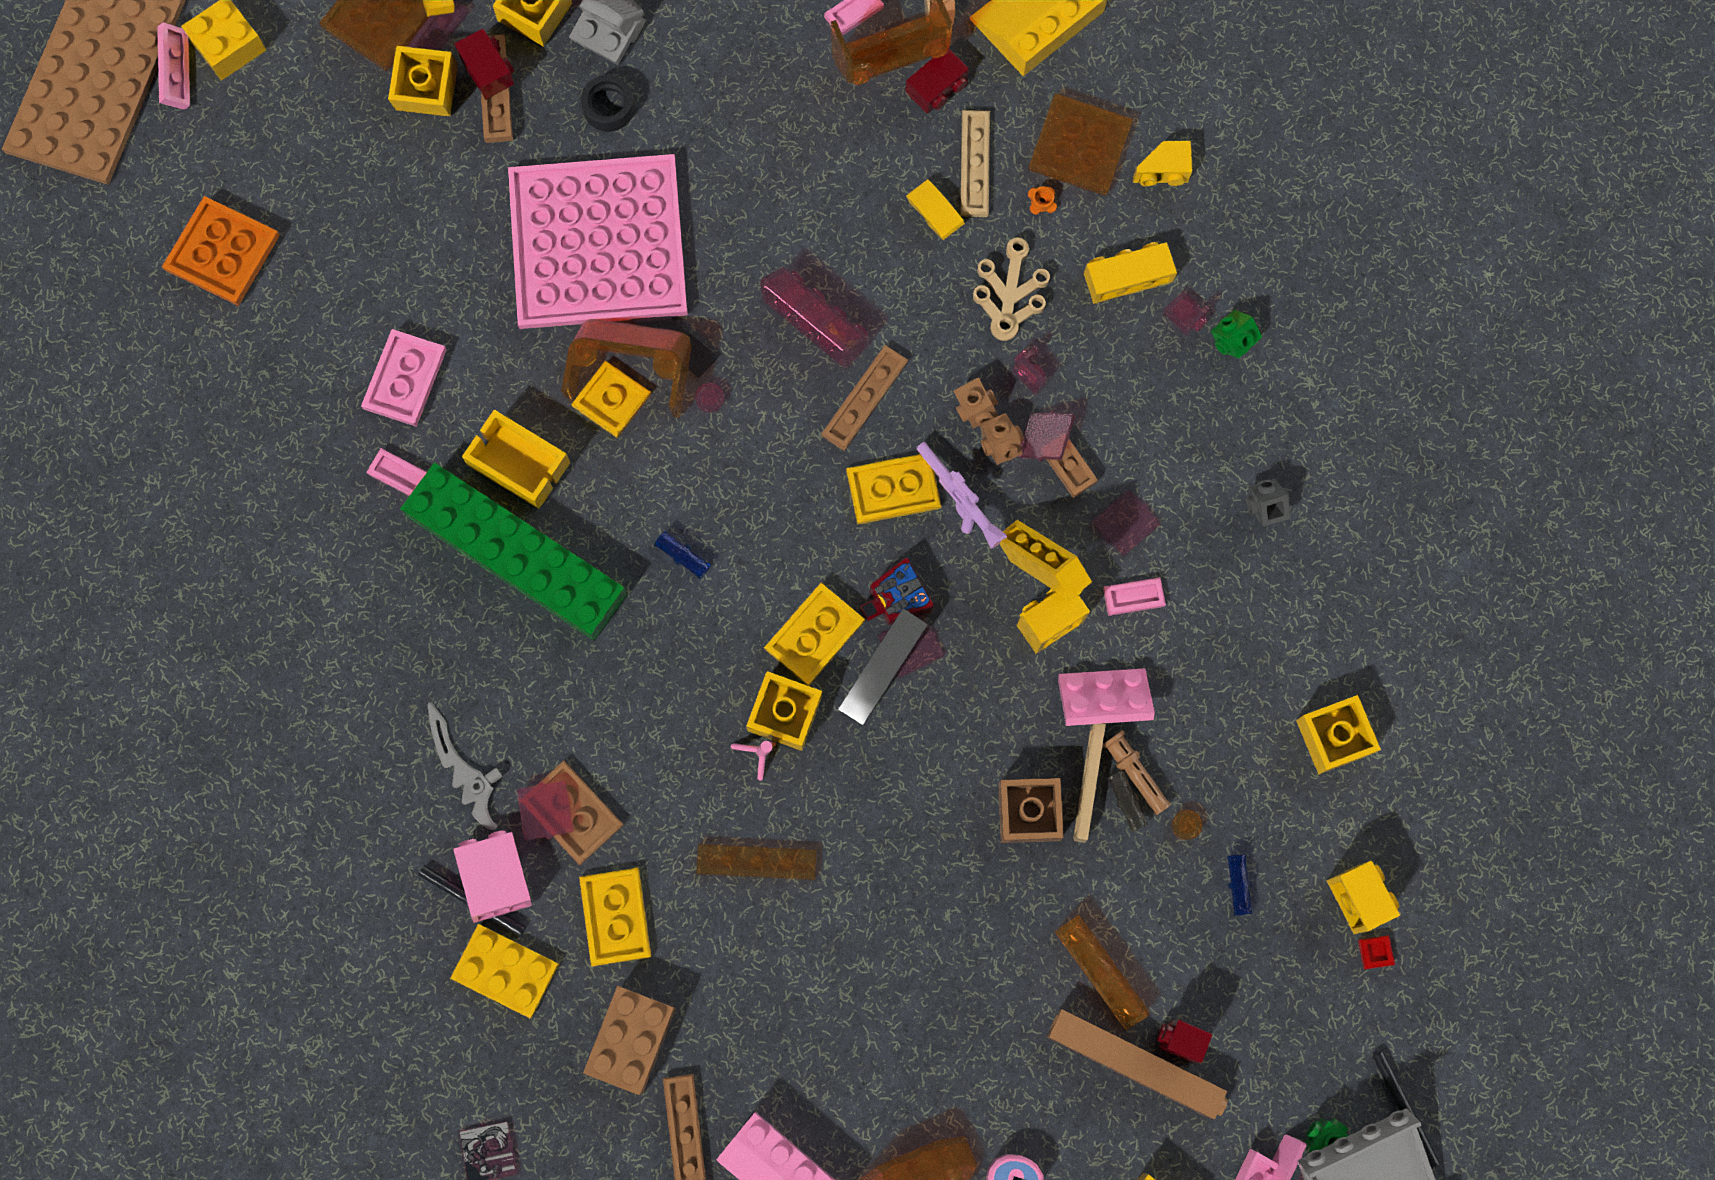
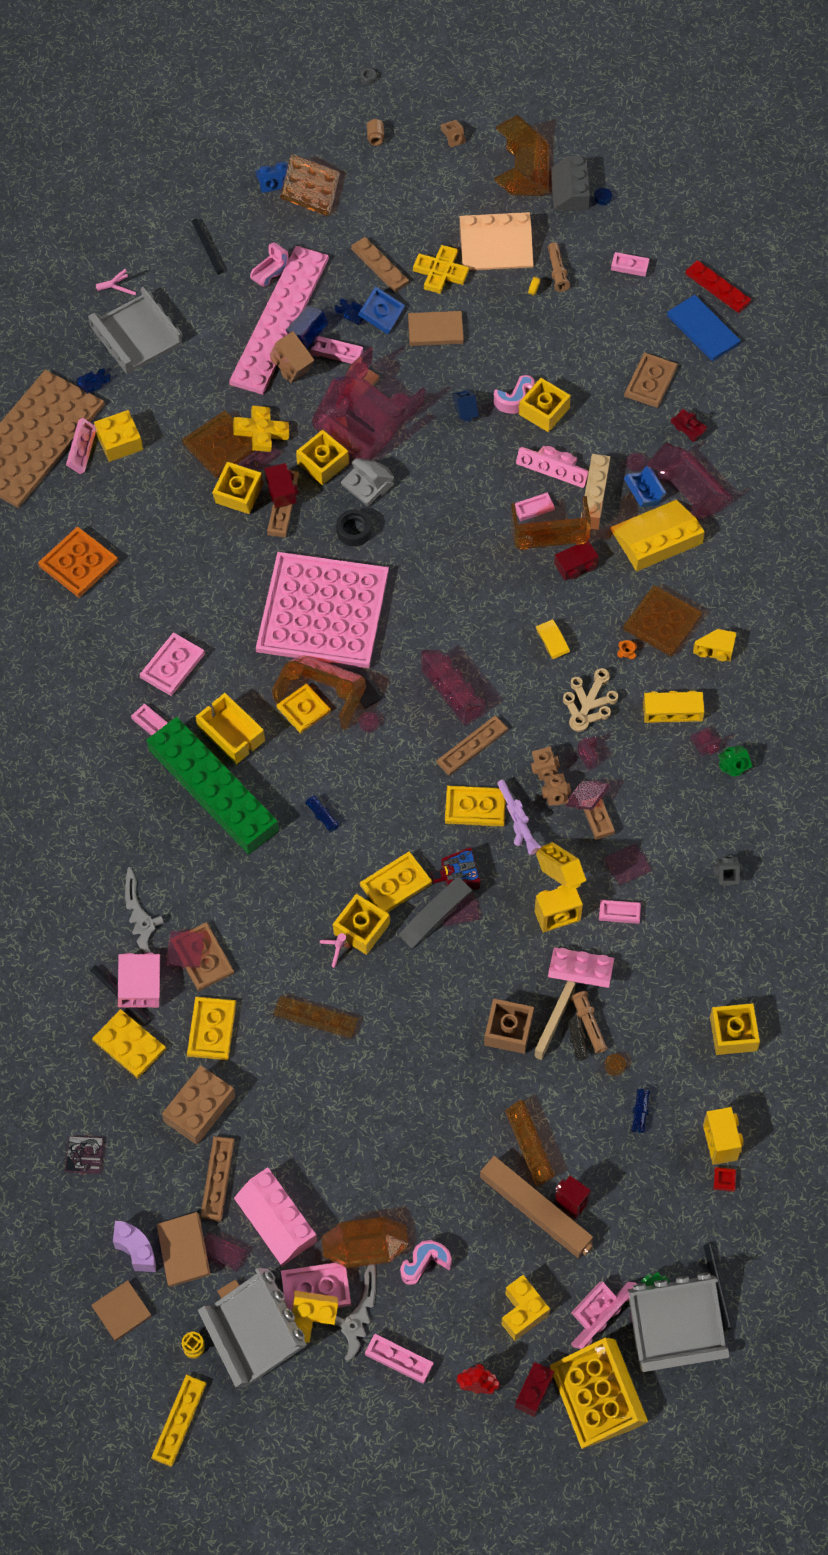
camera: 20 degrees right, 15 degrees down
(975, 163) = (588, 617): tan tile -> none

